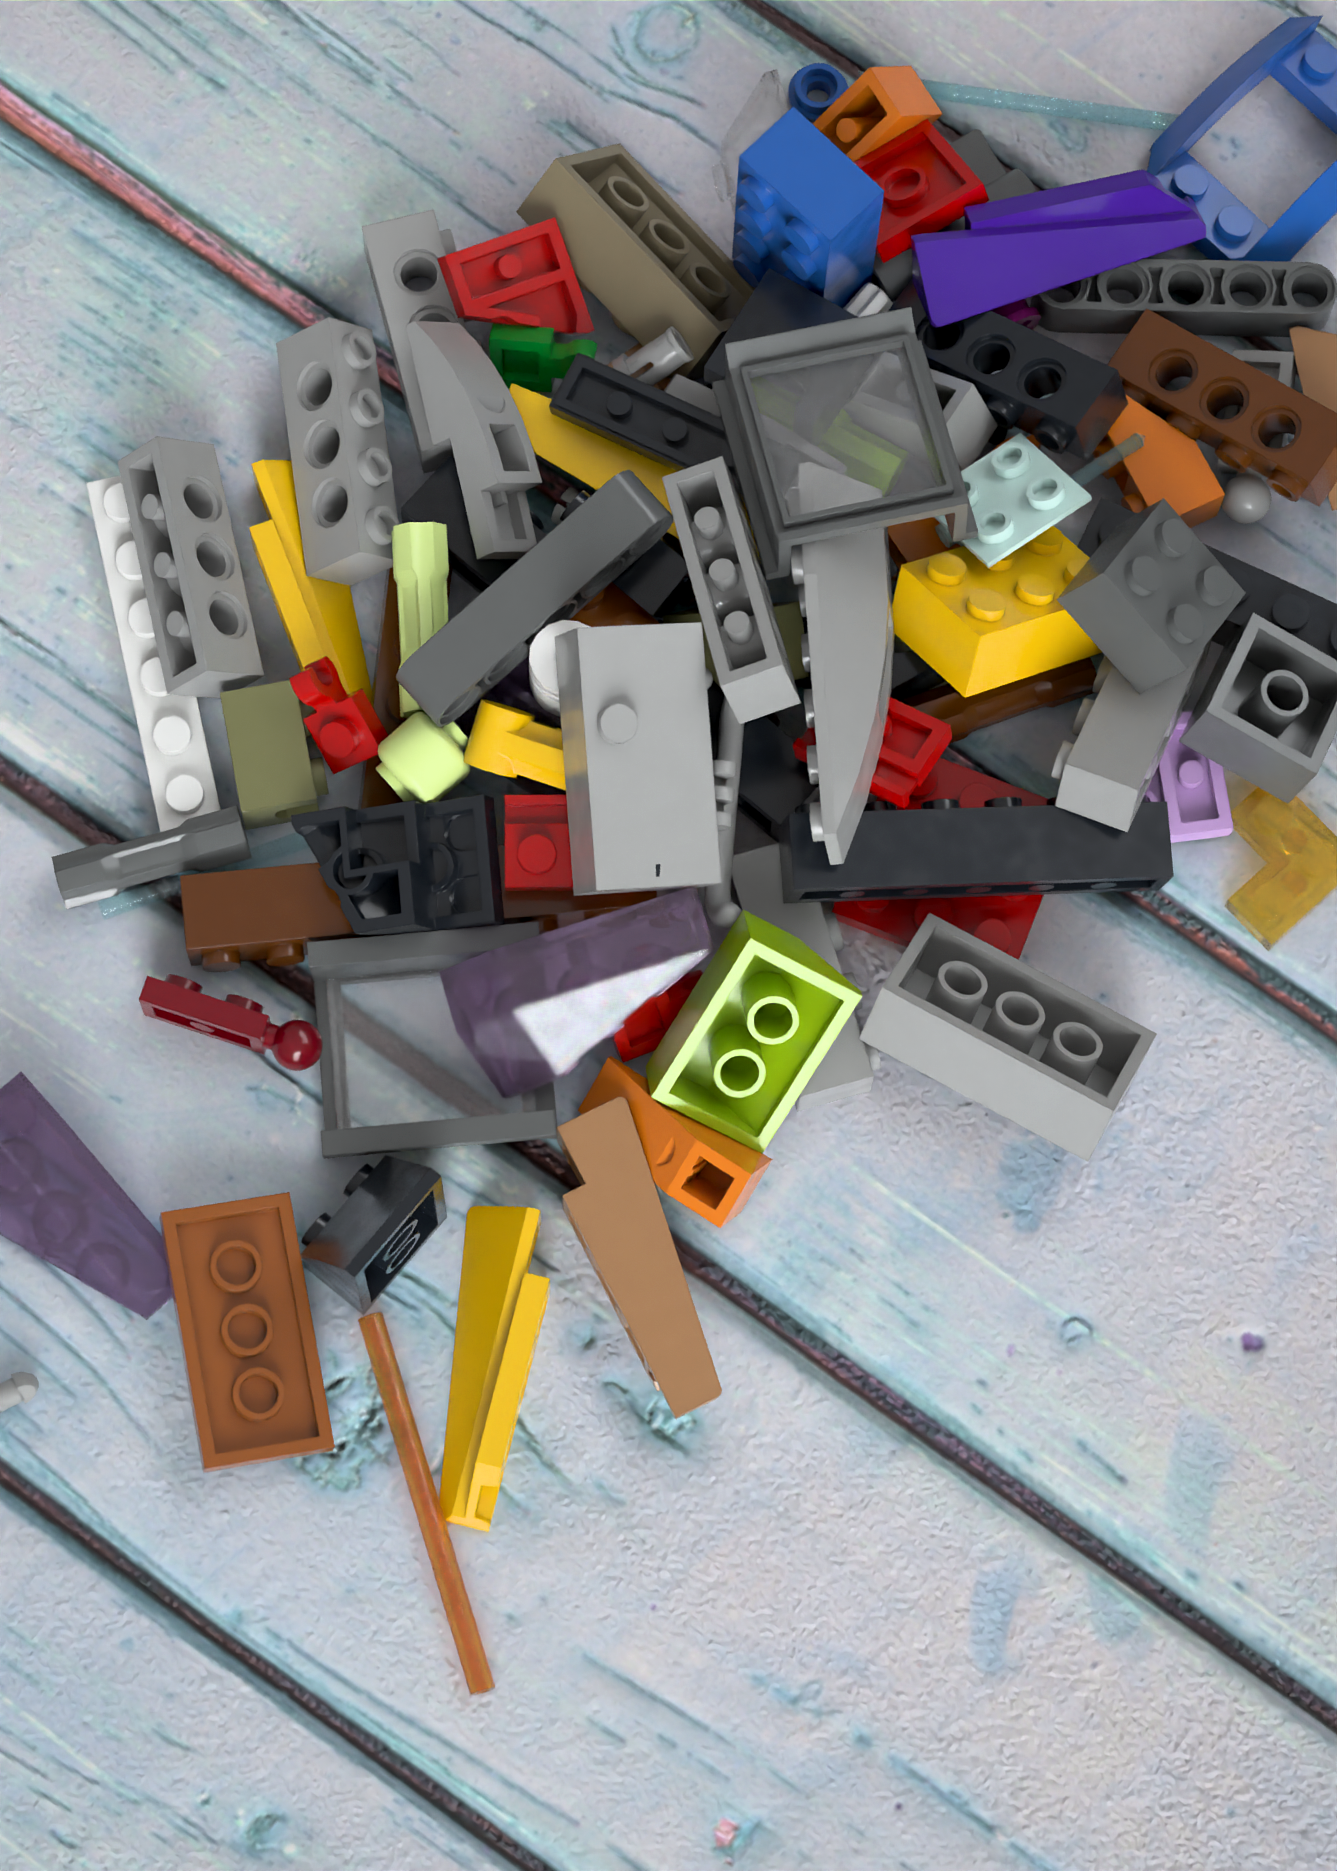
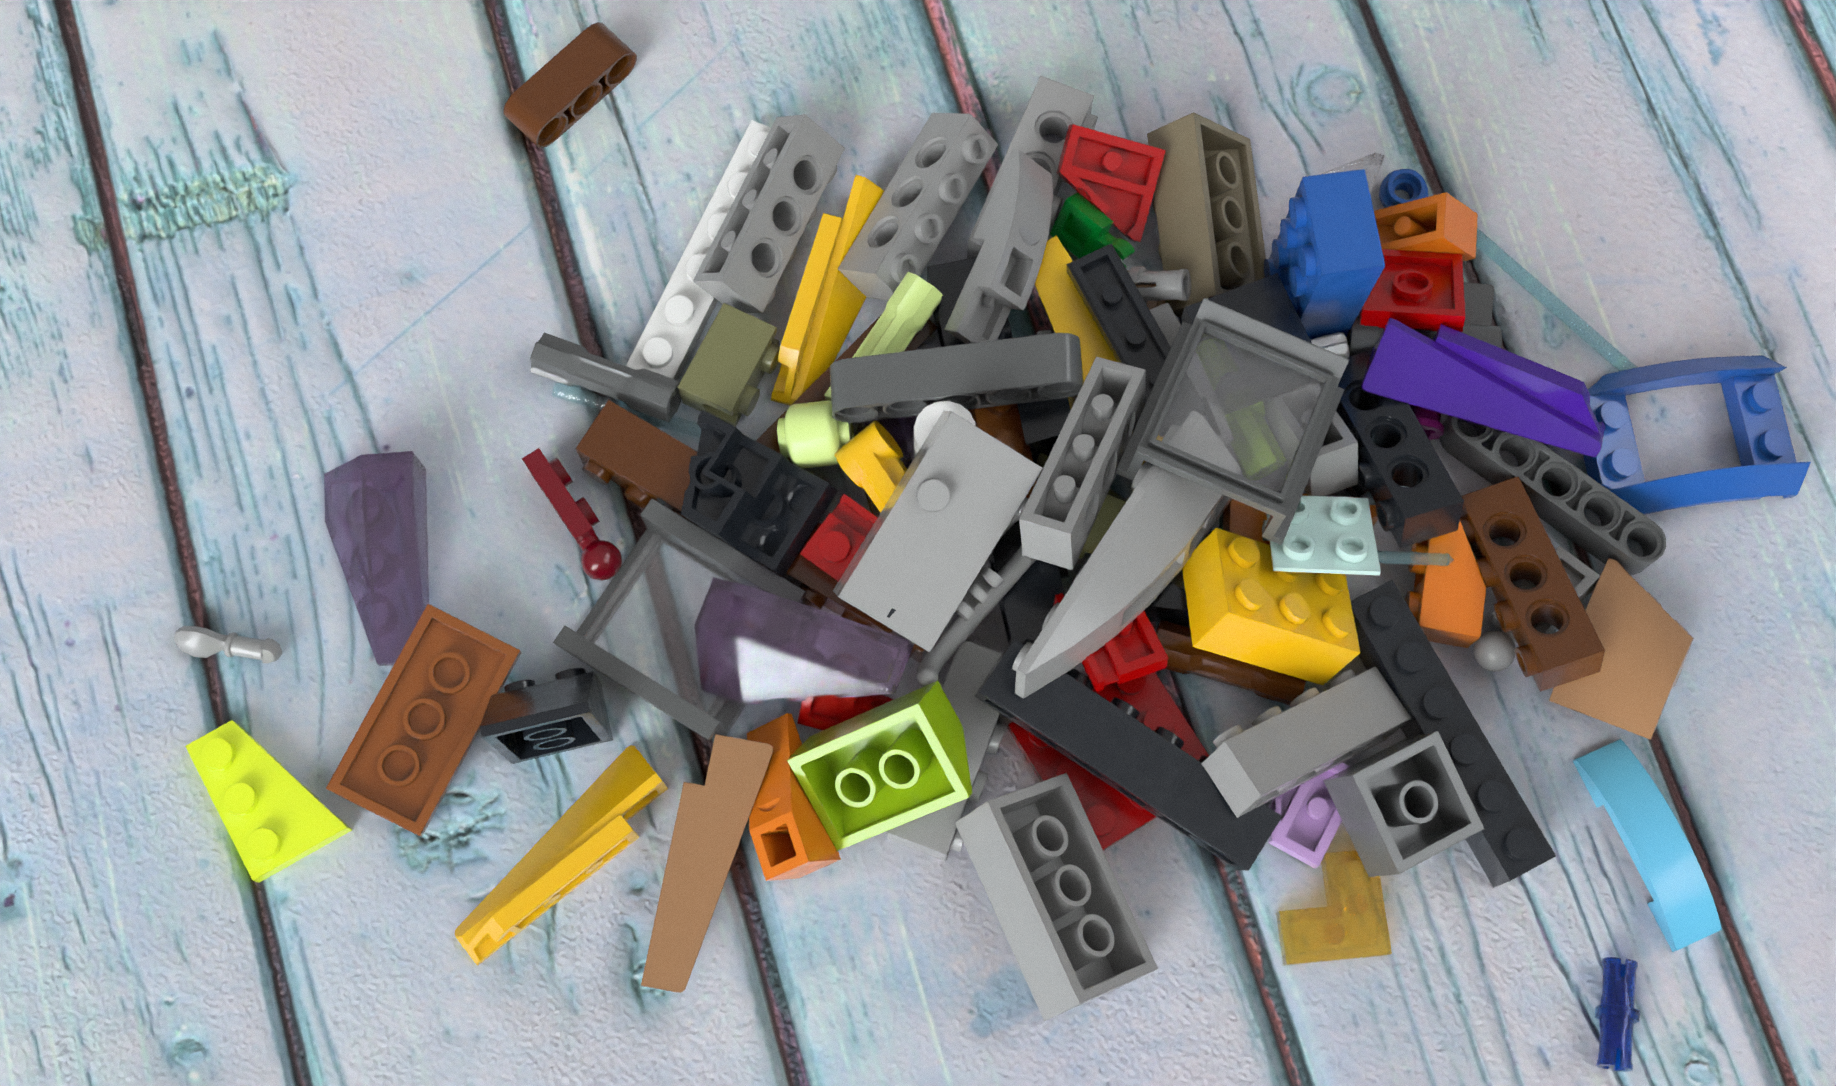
camera: 40 degrees right, 0 degrees up
(139, 1538) = (260, 802): none -> neon yellow wing
(341, 723) = (783, 375): red plate -> none
(426, 1504) = (450, 919): clear orange piece -> none
(1151, 596) = (1372, 670): dark grey brick -> none

